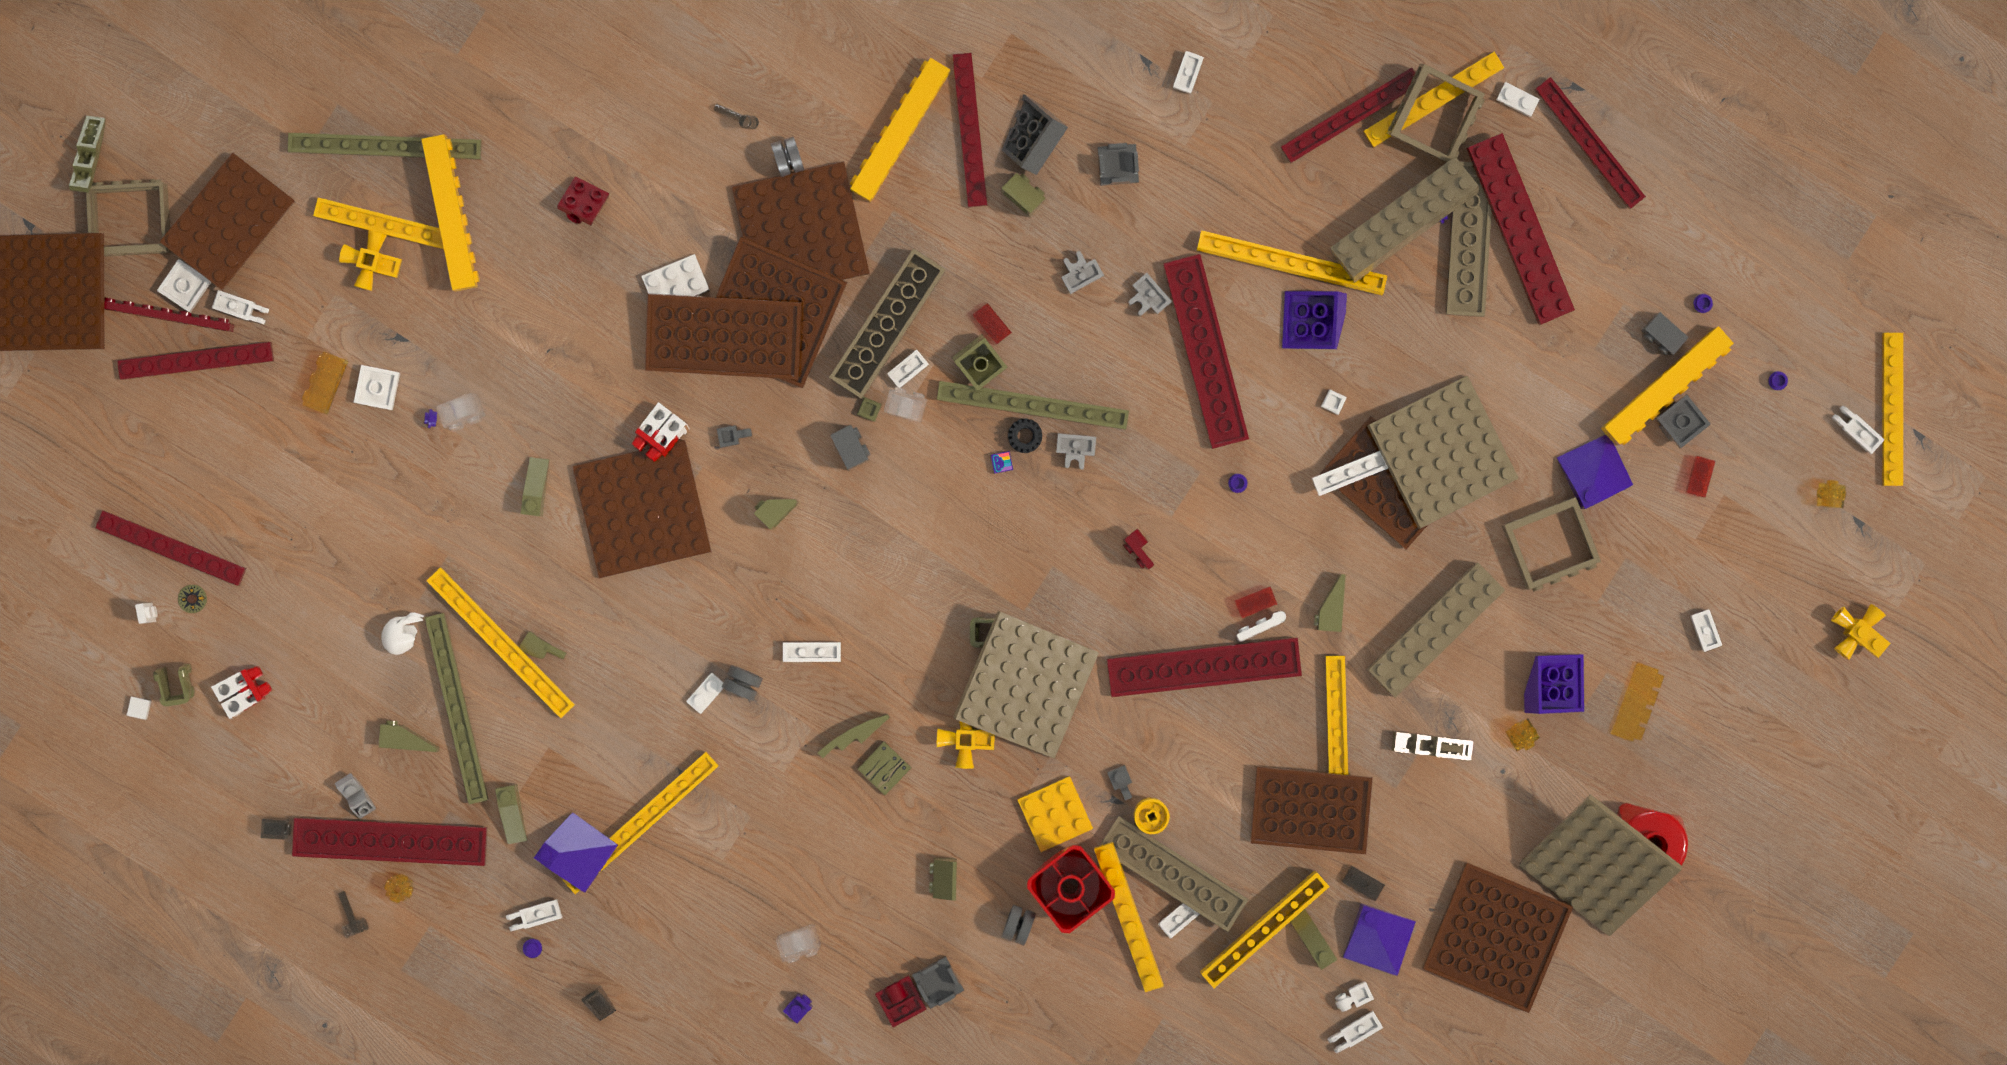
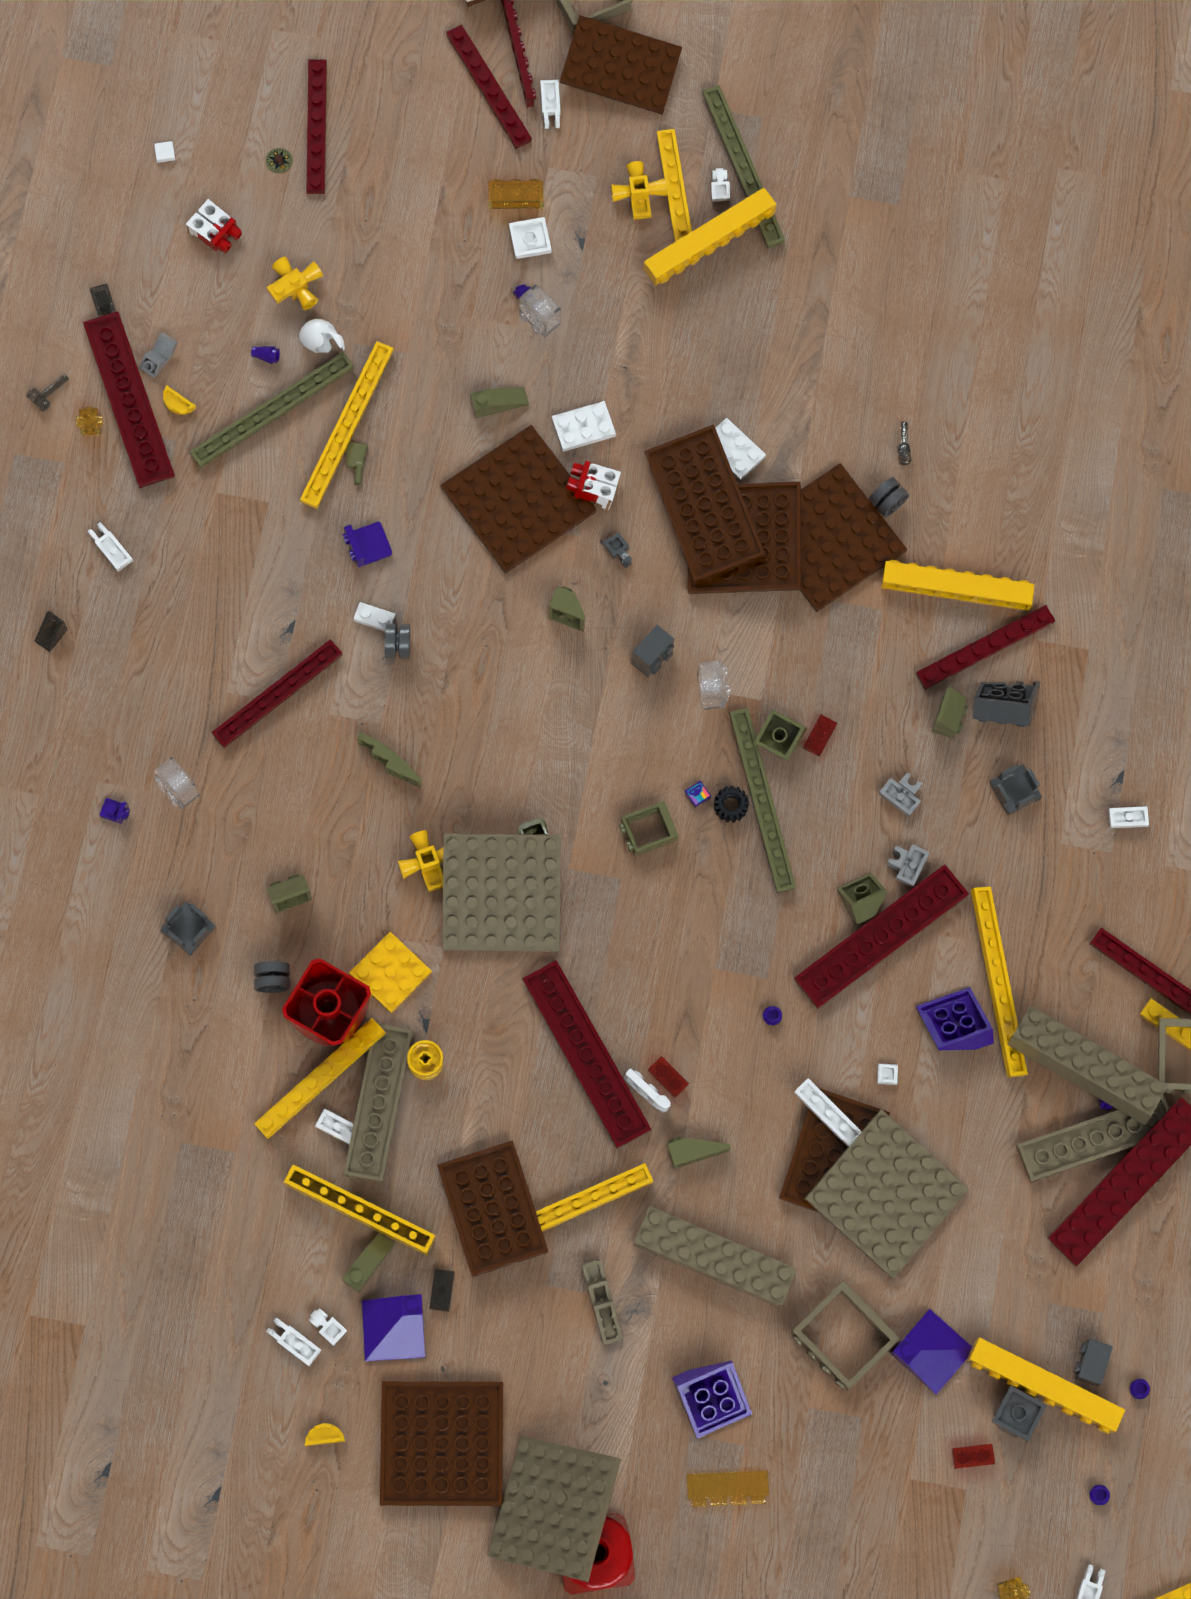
camera: 65 degrees right, 15 degrees down
(146, 613) = (251, 123): white plate -> none
(160, 675) = (204, 177): olive piece -> none
(184, 285) = (549, 52): white plate -> none
(334, 637) = (294, 283): none -> yellow brick
(397, 690) = (266, 353): none -> dark purple cone
(400, 179) = (721, 188): none -> white plate
(401, 737) = (227, 373): olive slope -> none
(412, 797) = (177, 403): none -> yellow plate
(511, 813) = (196, 490): olive slope -> none
(532, 948) = (79, 556): dark purple plate -> none
(576, 852) = (182, 557): dark purple slope -> none
(582, 201) = (769, 343): dark red plate -> none
(593, 416) = (583, 426): none -> white plate
(630, 671) = (367, 543): none -> dark purple bracket
(659, 807) = (232, 605): yellow plate -> none
(745, 814) = (277, 693): none -> dark red plate
(811, 651) = (451, 693): white plate -> none
(869, 409) = (693, 657): olive tile -> none
(884, 768) = (370, 800): olive tile -> none
(887, 323) = (779, 641): dark tan brick -> none
(900, 1001) = (156, 899): dark red plate -> none
(908, 369) = (746, 677): white plate -> none
(1026, 544) = (667, 822): none -> olive window
(1075, 448) = (739, 854): light grey plate -> none
(1120, 779) = (447, 1019): dark grey plate -> none
(1134, 544) = (674, 939): dark red plate -> none
(1162, 352) = (862, 897): none -> olive slope
(1447, 1036) = (324, 1434): none -> yellow plate
(1522, 735) = (649, 1384): clear yellow brick -> none
(1706, 630) = (827, 1525): white plate -> none

